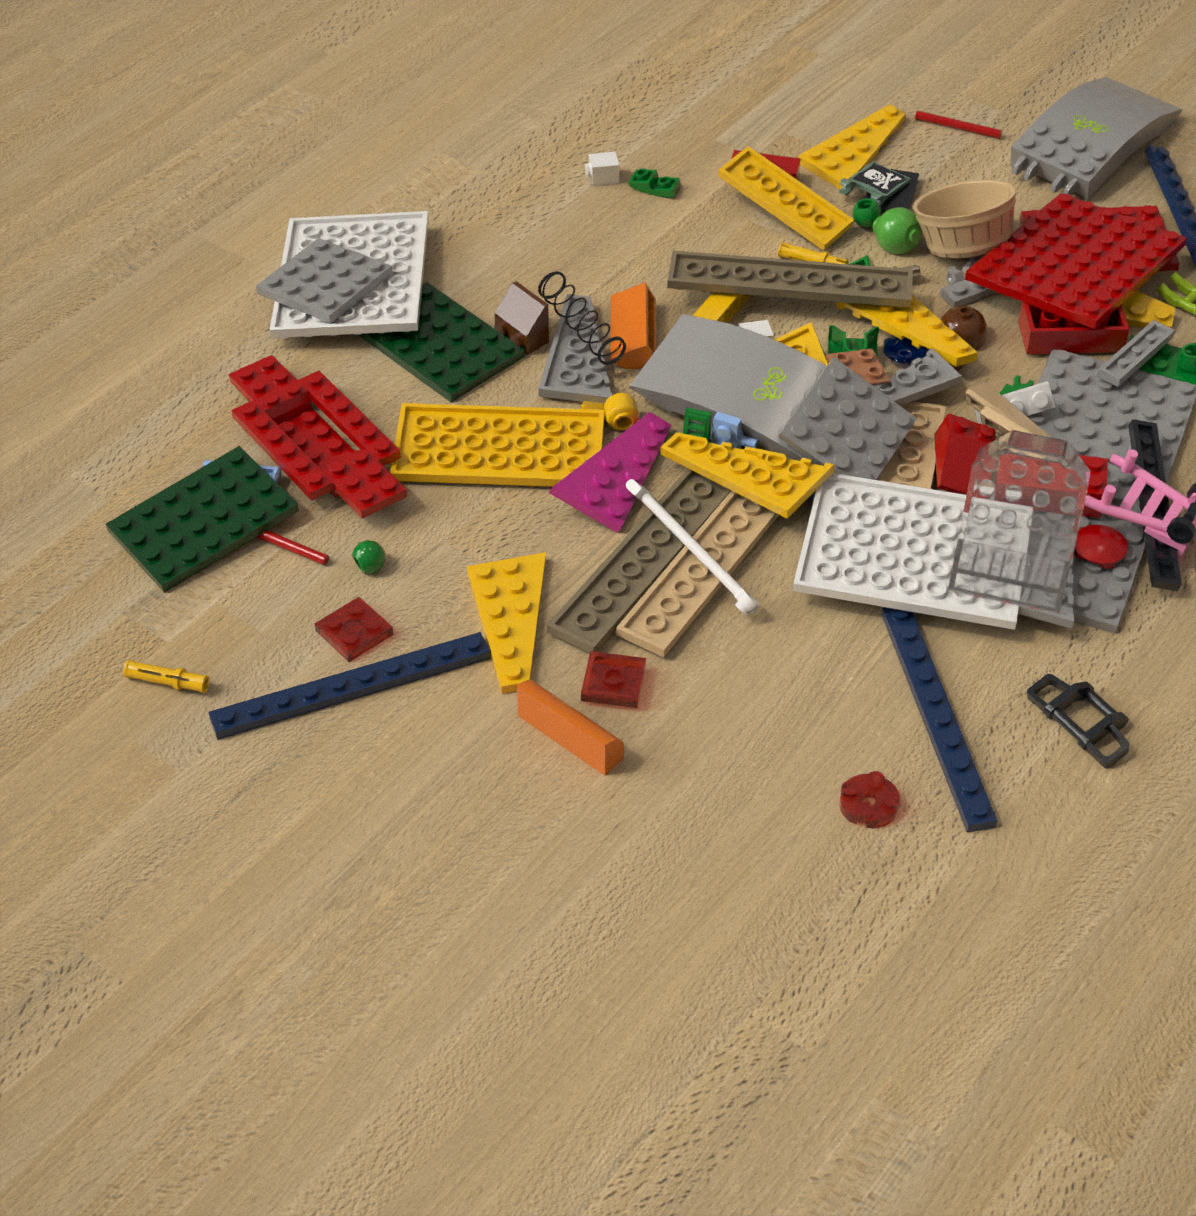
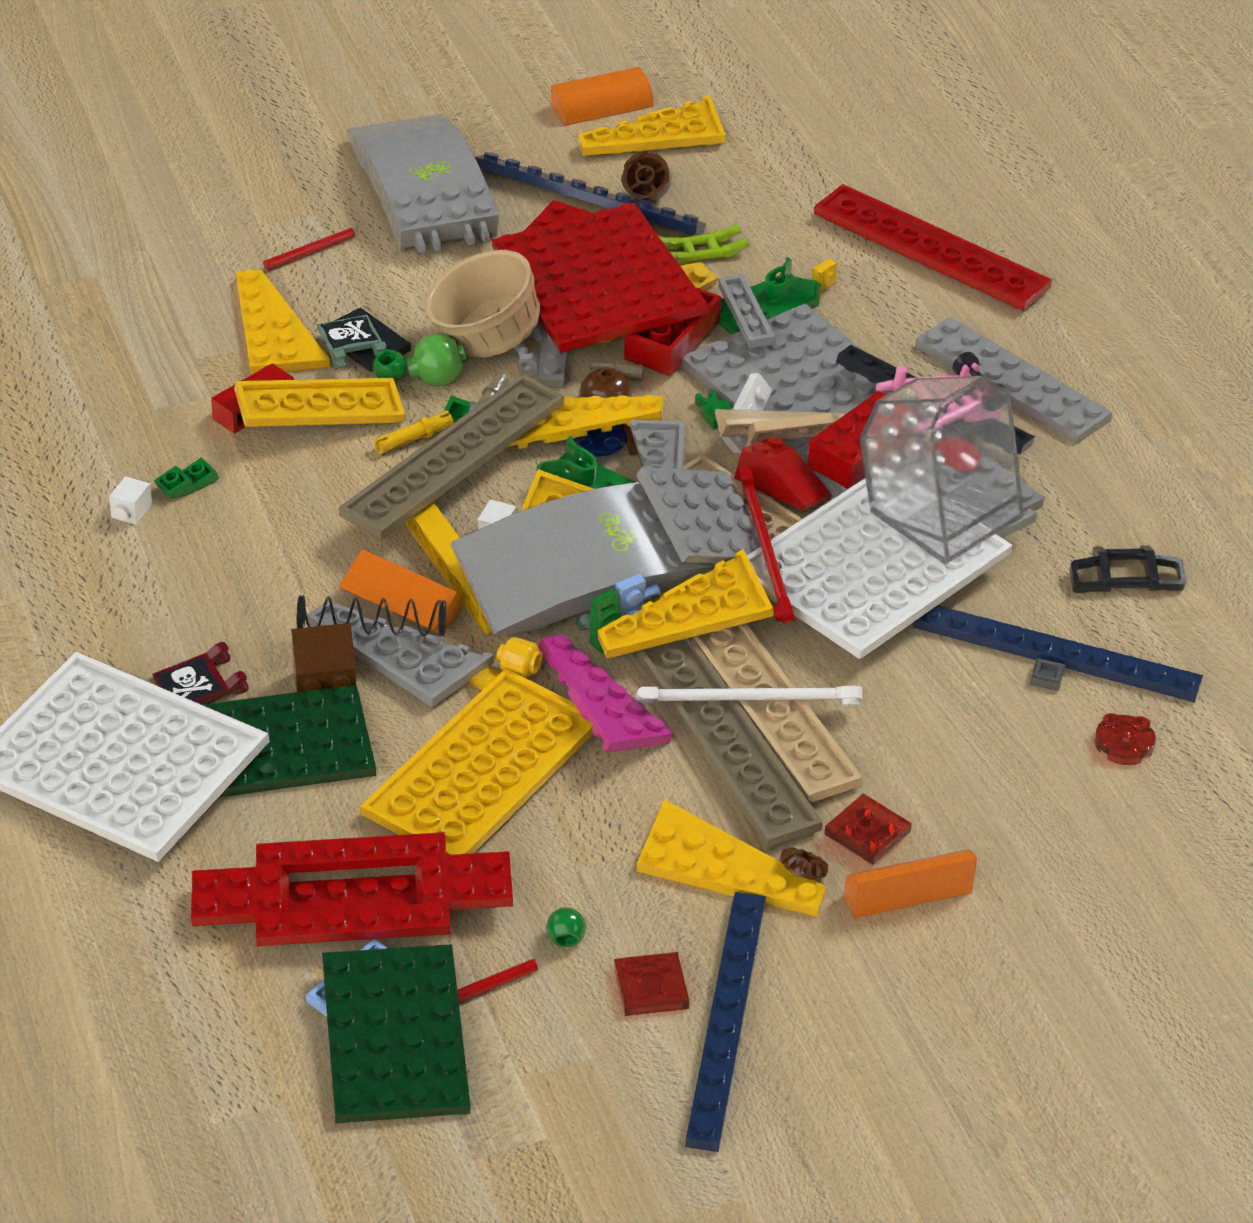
camera: 60 degrees left, 5 degrees down
(196, 681) = (636, 1131): yellow pin -> none
(324, 280) = (119, 775): light grey plate -> none
(464, 278) = (199, 678): none -> flag
(538, 665) = (803, 863): none -> reddish brown gear
(793, 518) = (782, 611): none -> red hinge
(863, 363) = (615, 471): nougat hinge -> none
(902, 719) = (1047, 674): none -> dark grey tile
(998, 324) = (631, 371): none -> dark tan axle

